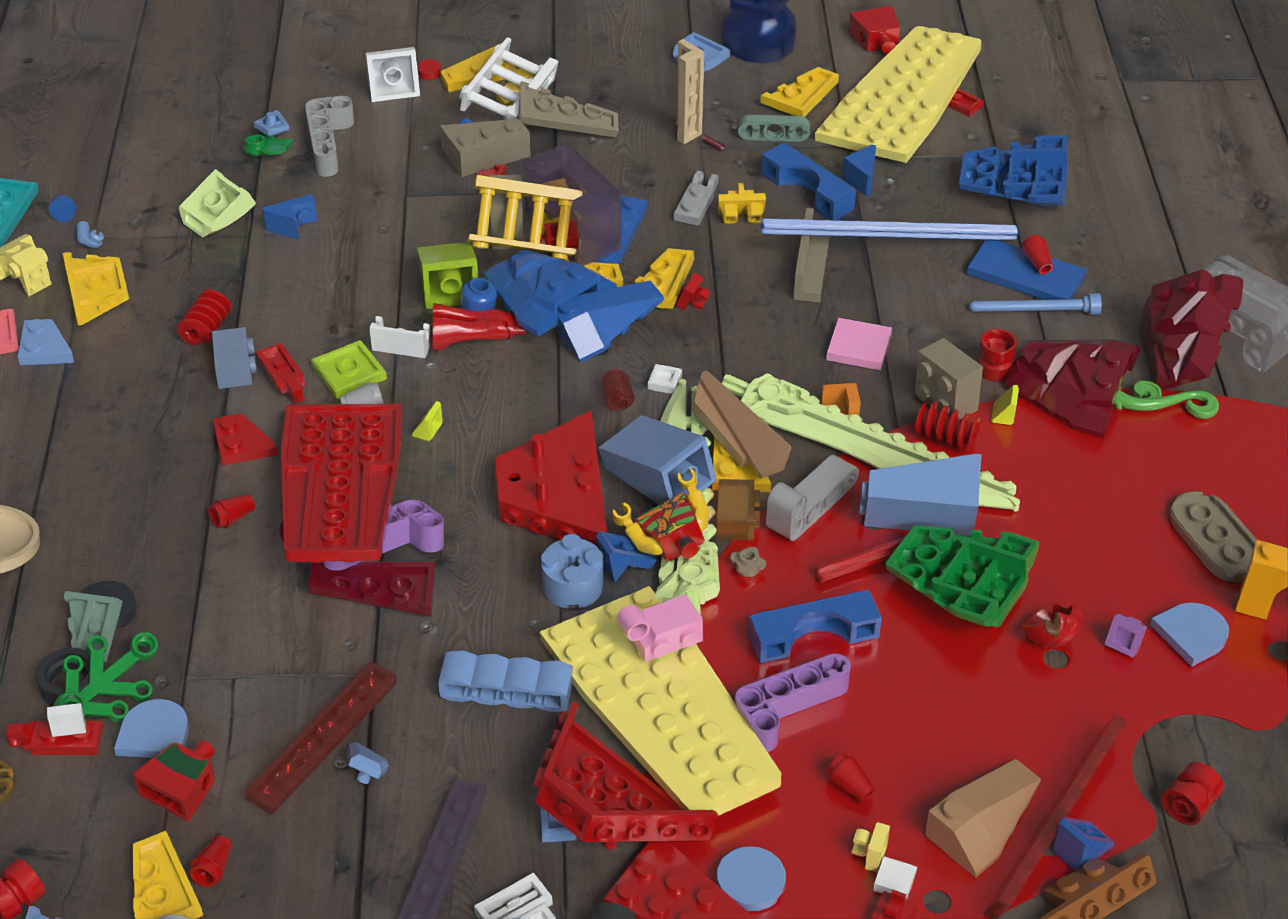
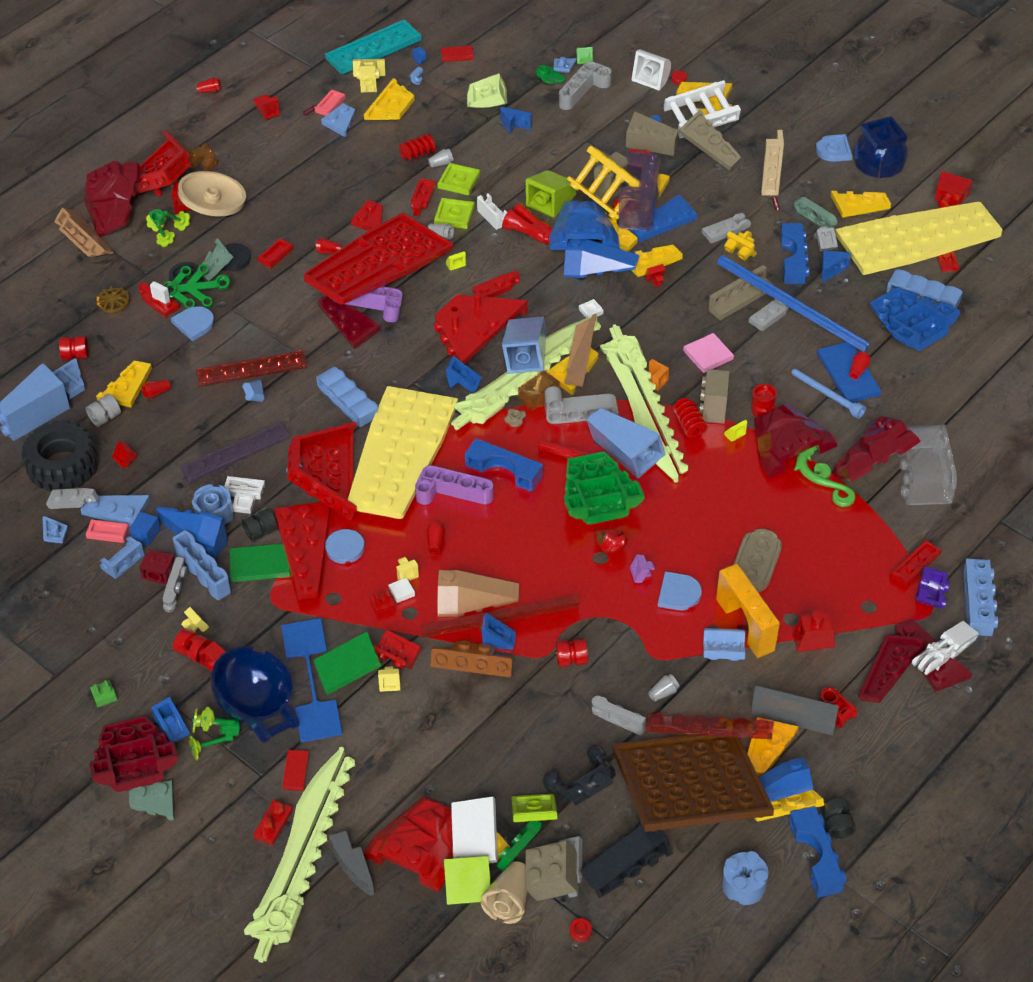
camera: 45 degrees right, 5 degrees up
(110, 182) = (459, 53): none -> red tile
(161, 564) = (275, 253): none -> red tile
(177, 778) = (180, 346): red torso -> none
(233, 358) = (407, 175): sand blue brick -> none
(252, 311) = (442, 158): none -> light grey cone
(285, 99) = (584, 54): none -> bright green tile
(302, 325) = (459, 179): none -> lime tile
(478, 295) = (547, 212): blue head -> none
(516, 422) = (497, 285): none -> red hinge
(572, 572) = (429, 368): medium blue brick -> none
(618, 390) = (558, 300): clear red brick -> none
(662, 627) = (428, 416): bright pink hinge -> none
(671, 527) = (492, 376): torso -> none
(821, 147) = (826, 238): none -> light grey bracket
(866, 262) = (768, 315): none -> light grey hinge
(999, 134) = (925, 288): none -> medium blue brick

